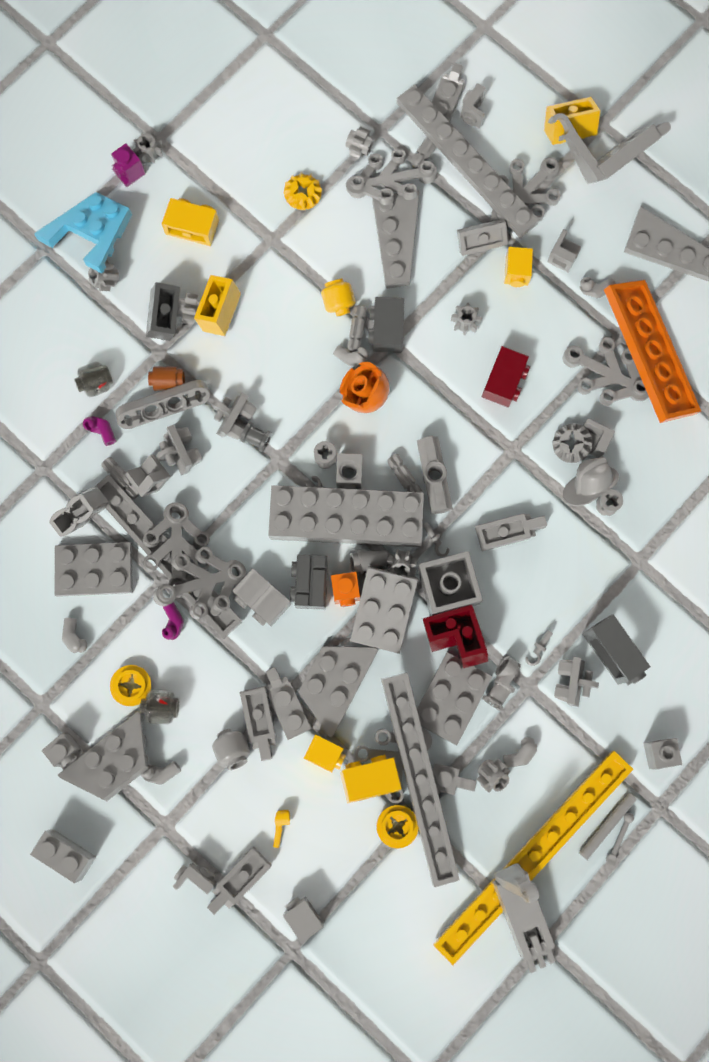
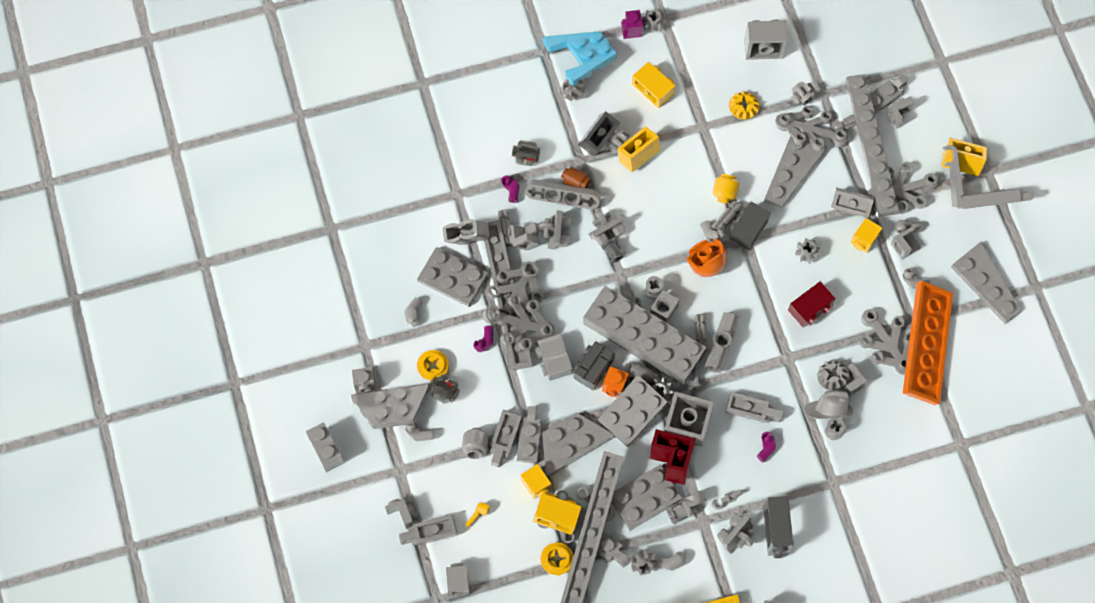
camera: 30 degrees right, 10 degrees down
(285, 102) = (765, 39): none -> light grey brick
(550, 563) = (769, 446): none -> magenta arm
(551, 233) = (903, 225): none -> light grey arm

